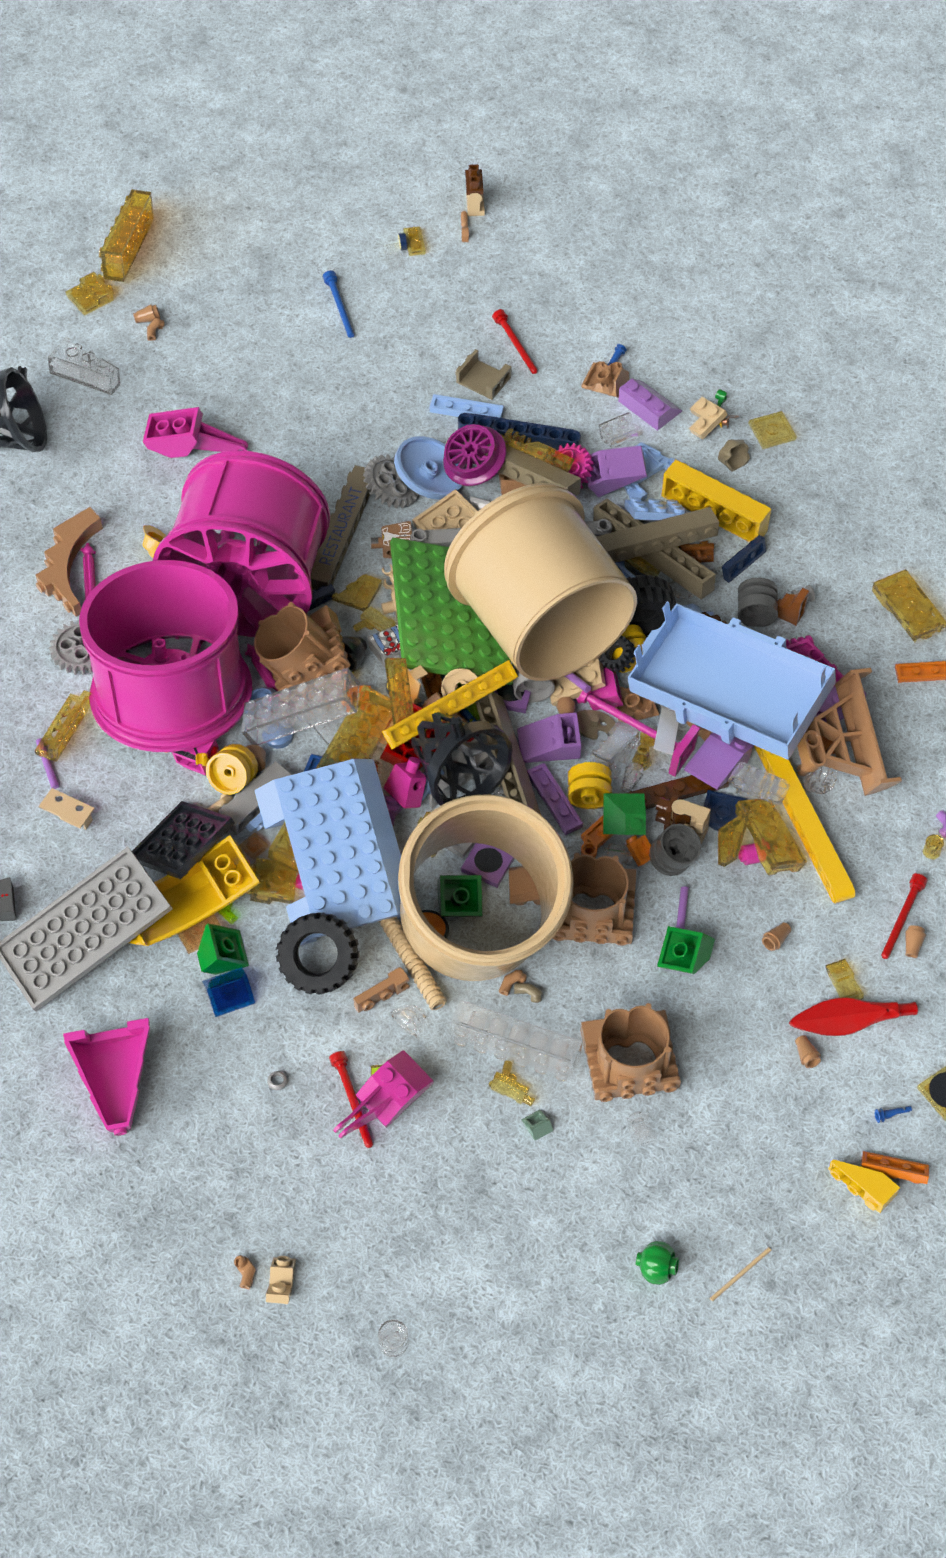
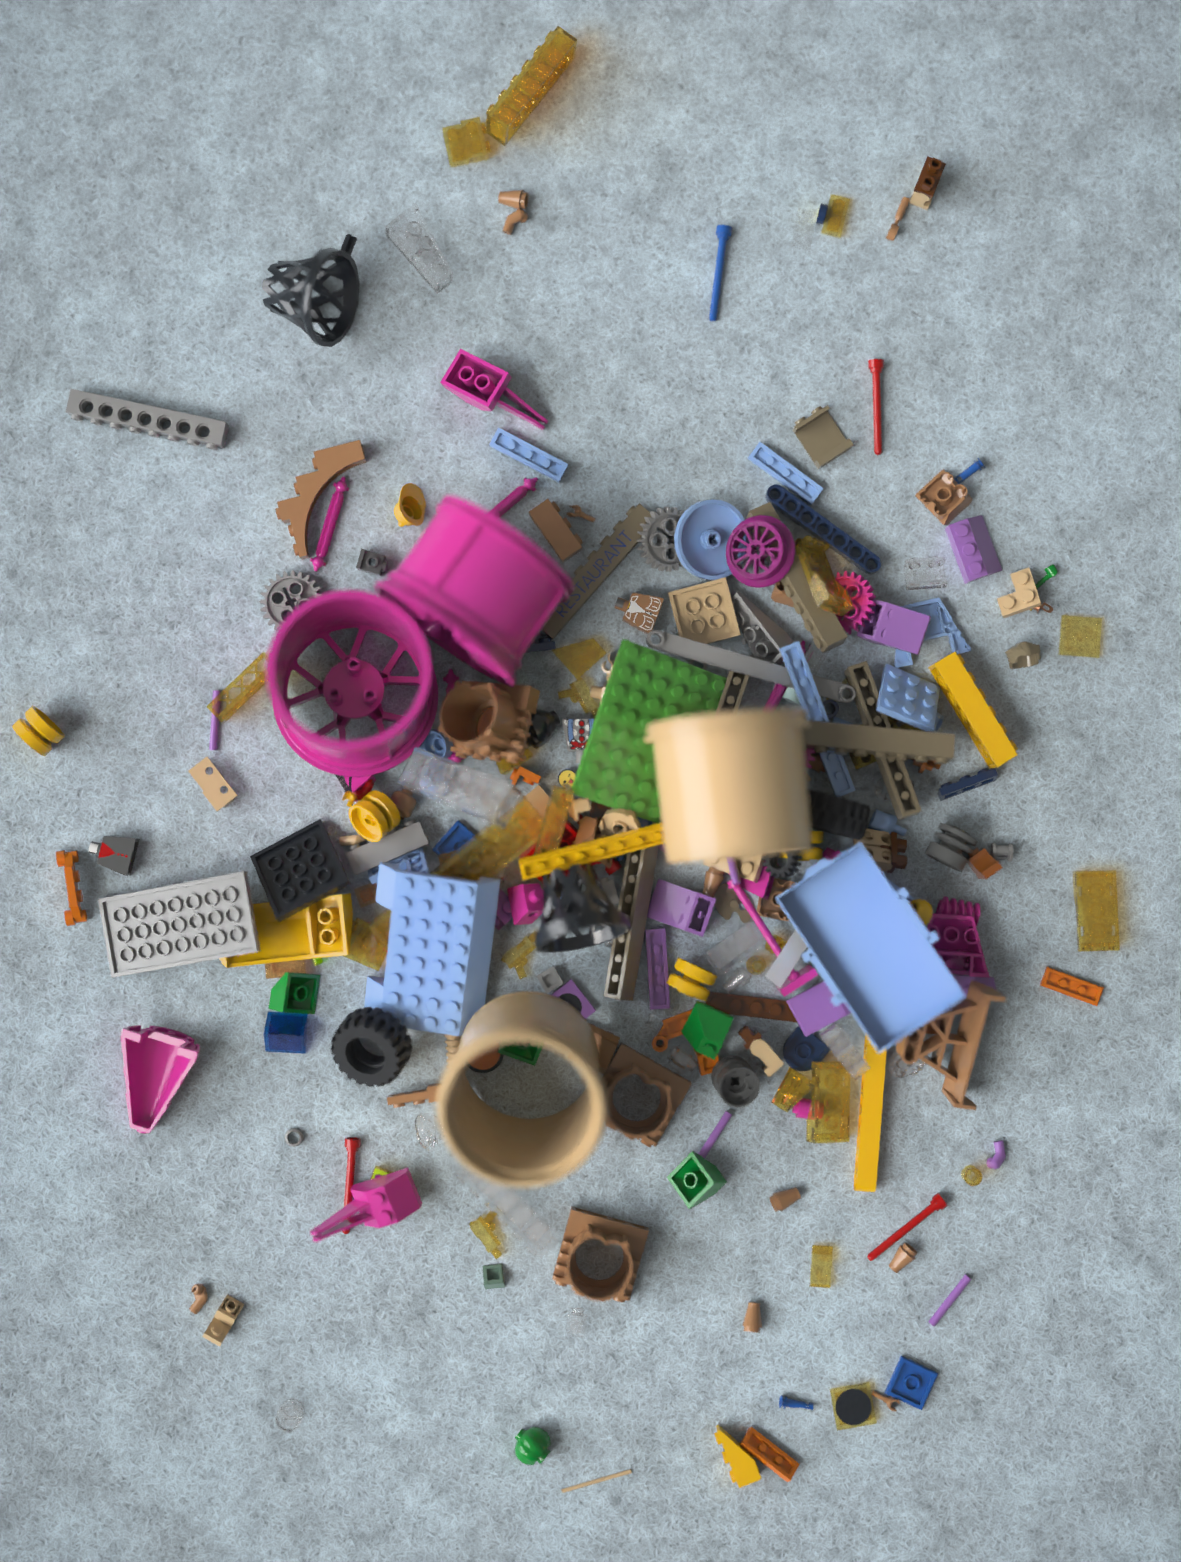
camera: 25 degrees right, 30 degrees up
(848, 1015) = (807, 1301): red animal -> none

